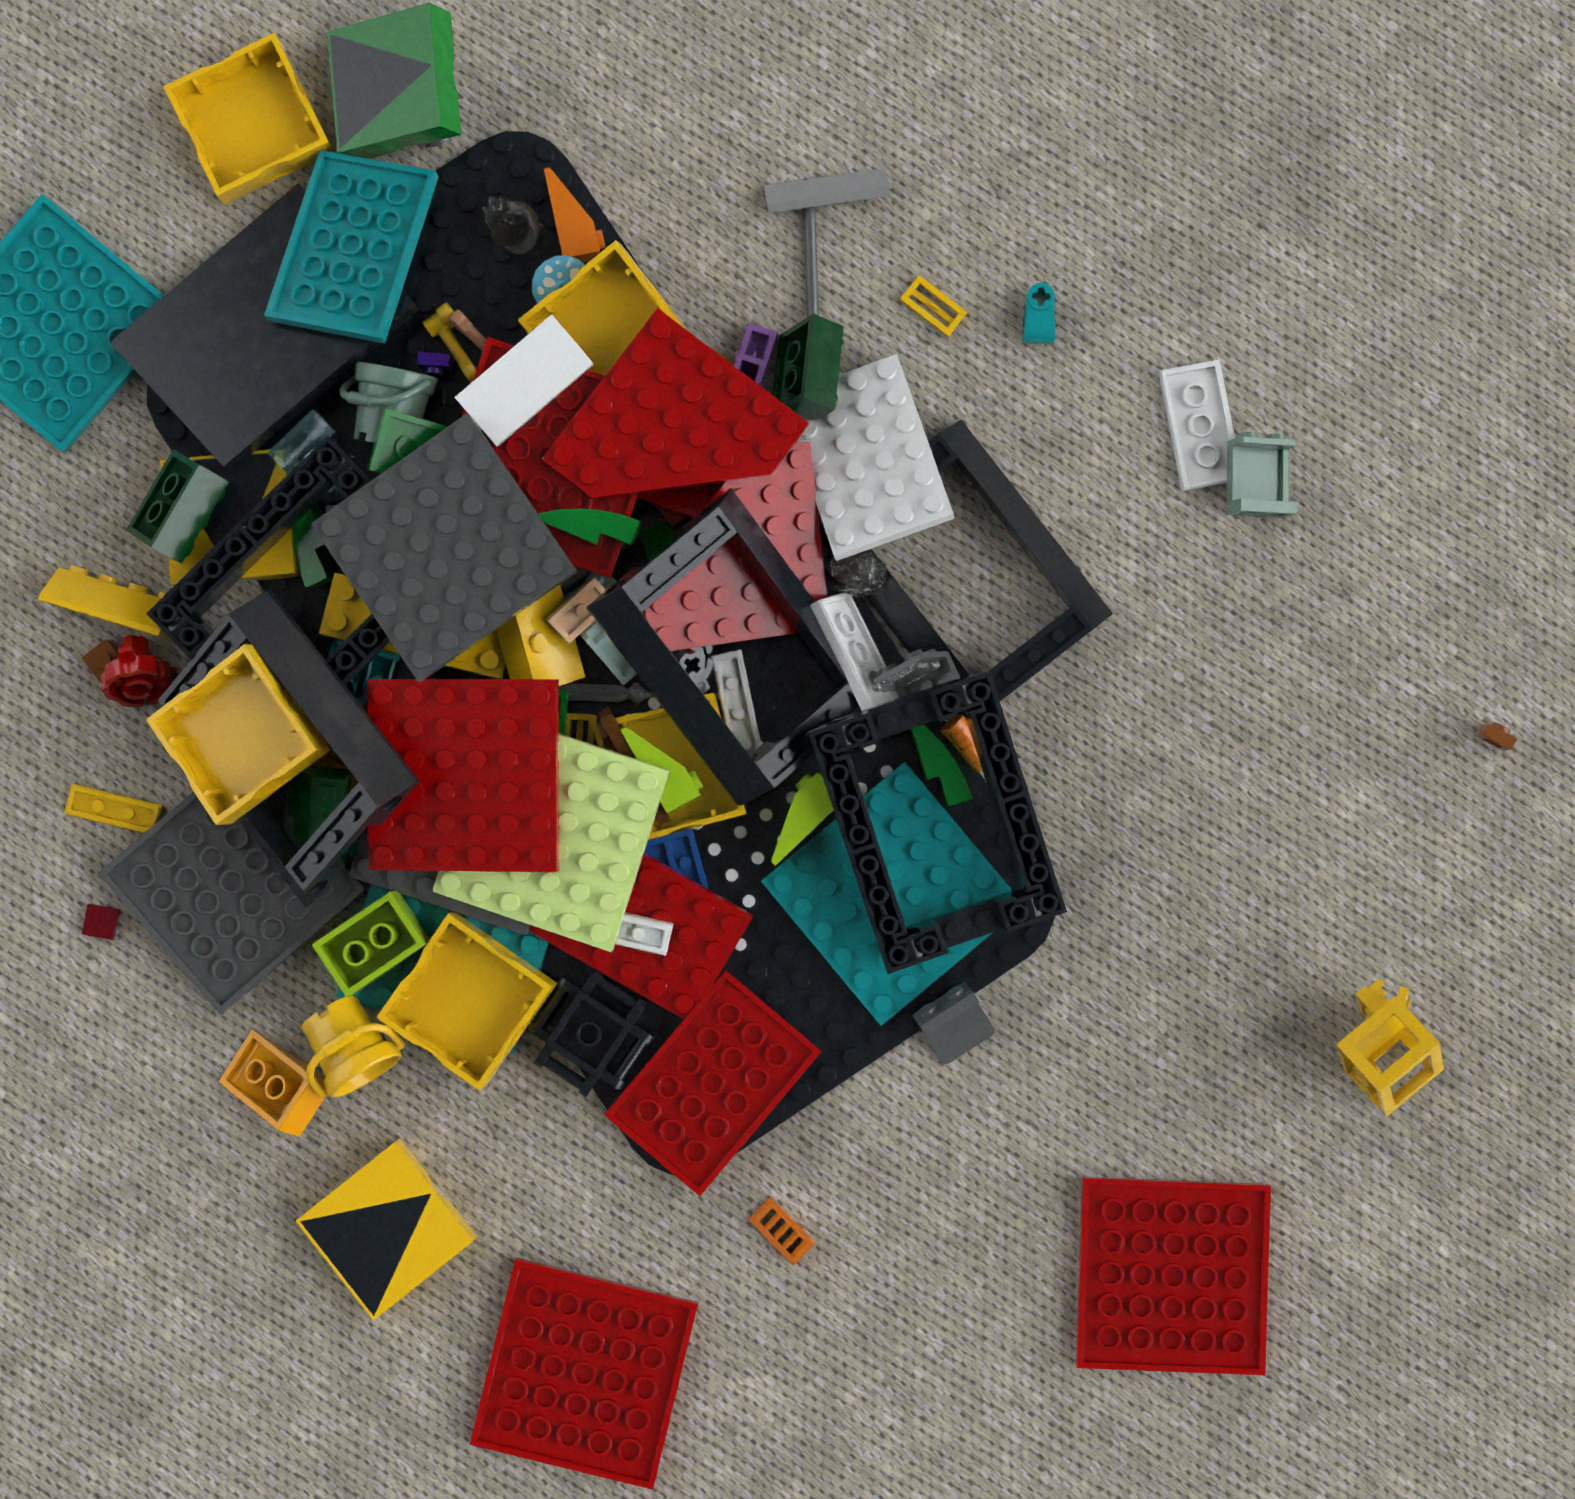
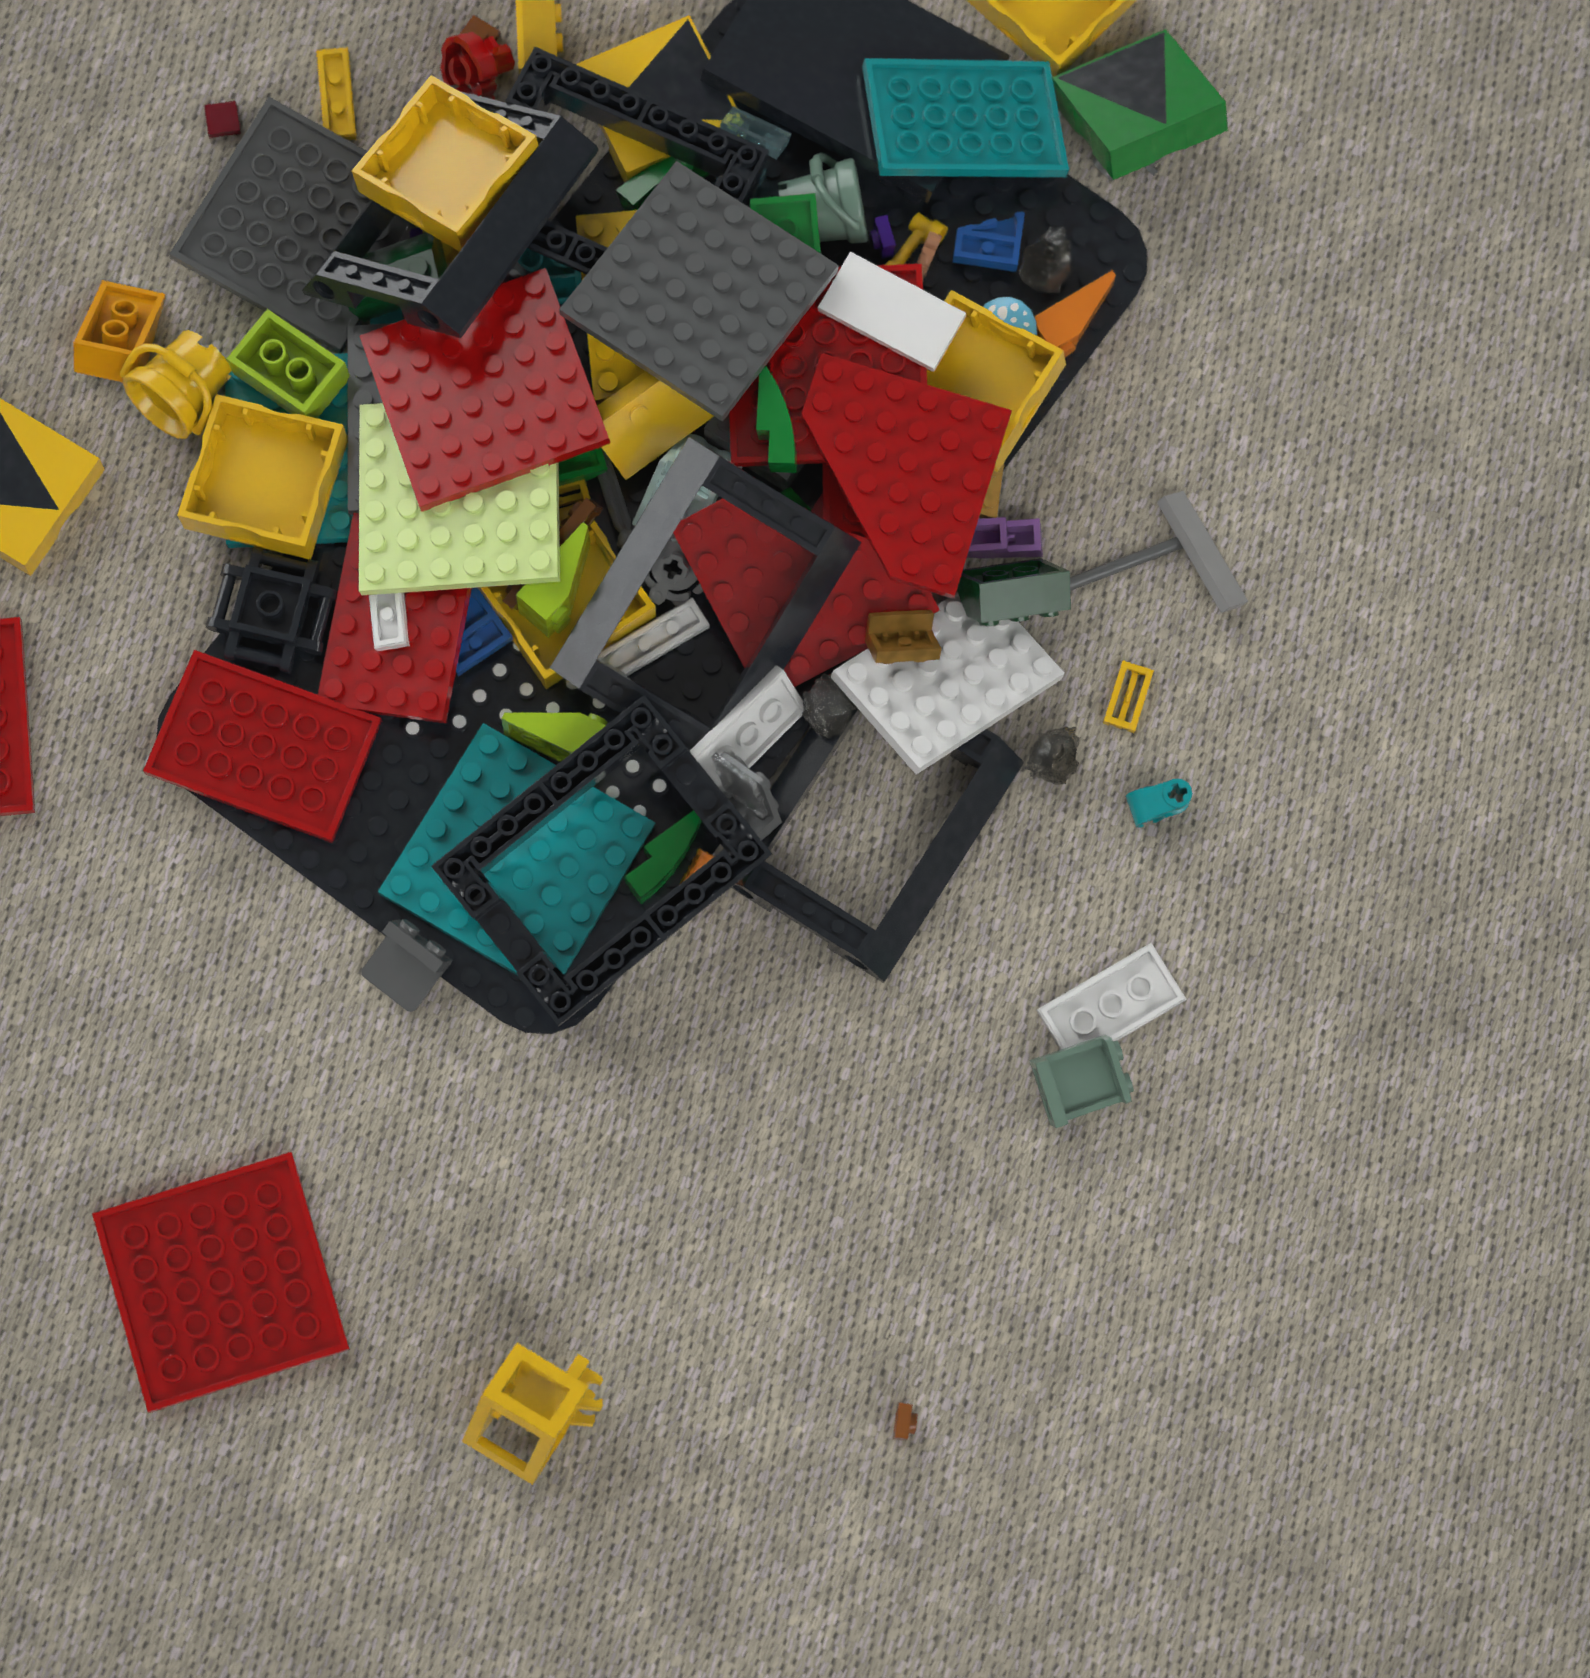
camera: 65 degrees right, 10 degrees down
(177, 506) = (649, 44): dark green slope -> none
(475, 268) = (990, 243): none -> blue wing
(573, 615) = (673, 435): light nougat plate -> none
(794, 1256) = (133, 897): orange slope -> none
(827, 484) = (902, 636): none -> pearl gold bracket
(967, 391) = (1054, 755): none -> clear smoke hair

